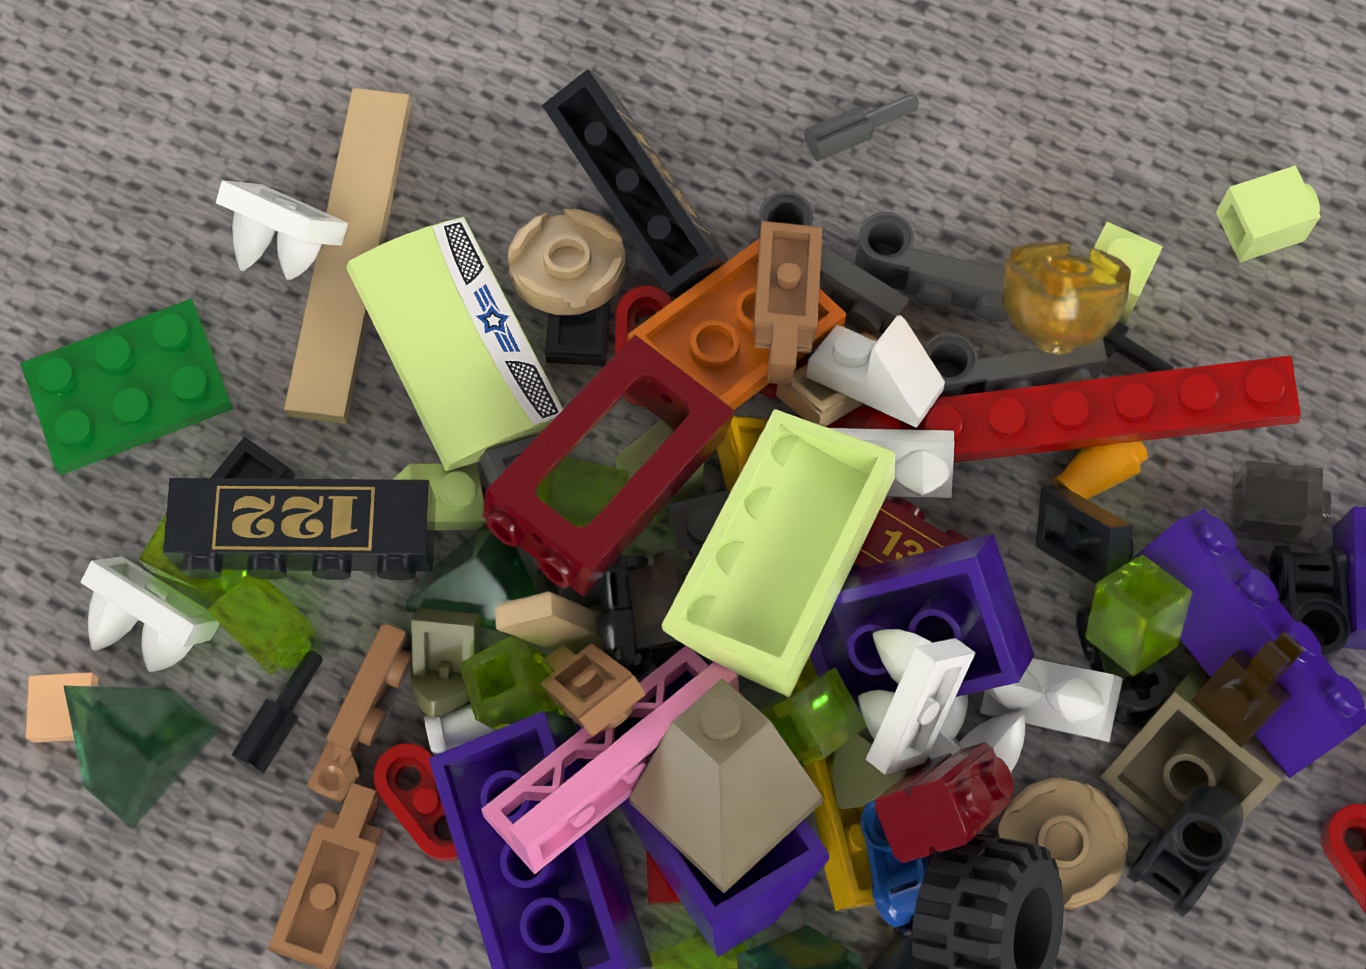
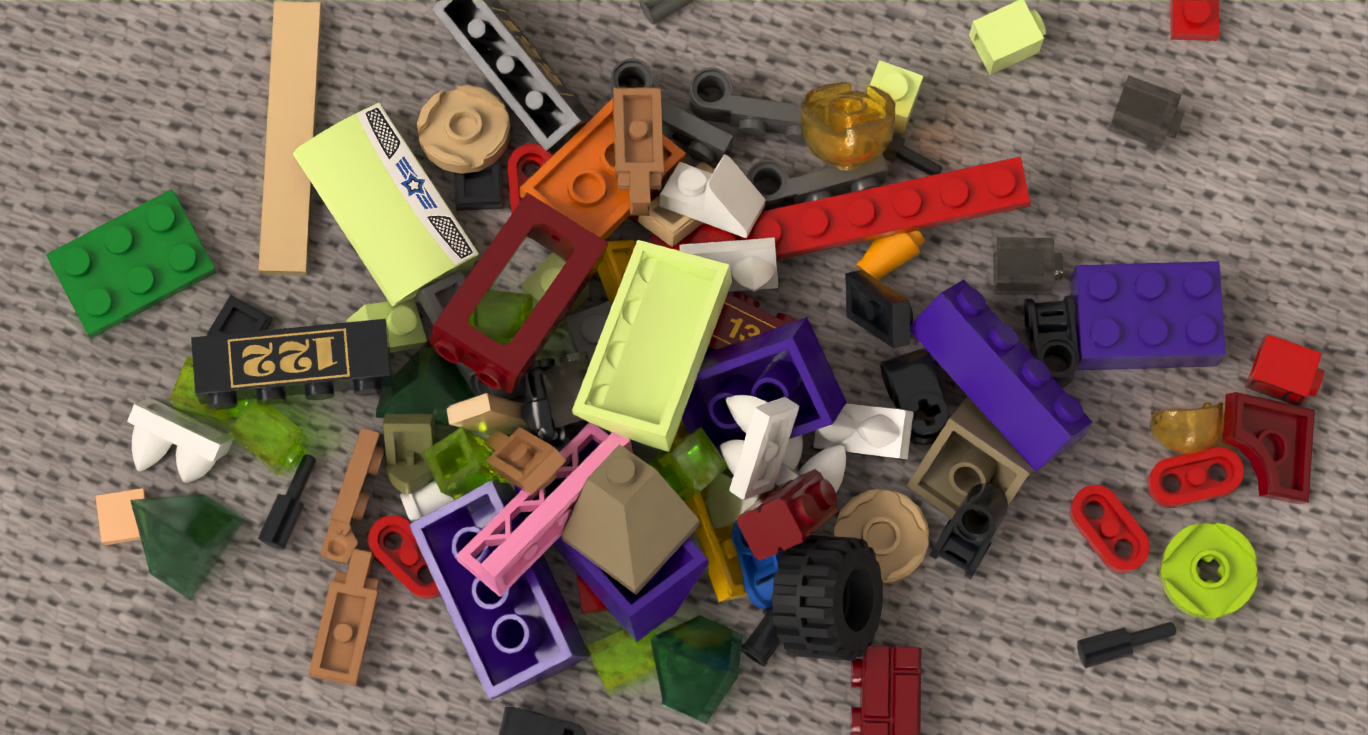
camera: 10 degrees left, 5 degrees up
(263, 212) = (220, 112): white tile -> none
(1138, 614) = (918, 364): clear neon green brick -> none
(1246, 690) = (997, 411): dark brown plate -> none

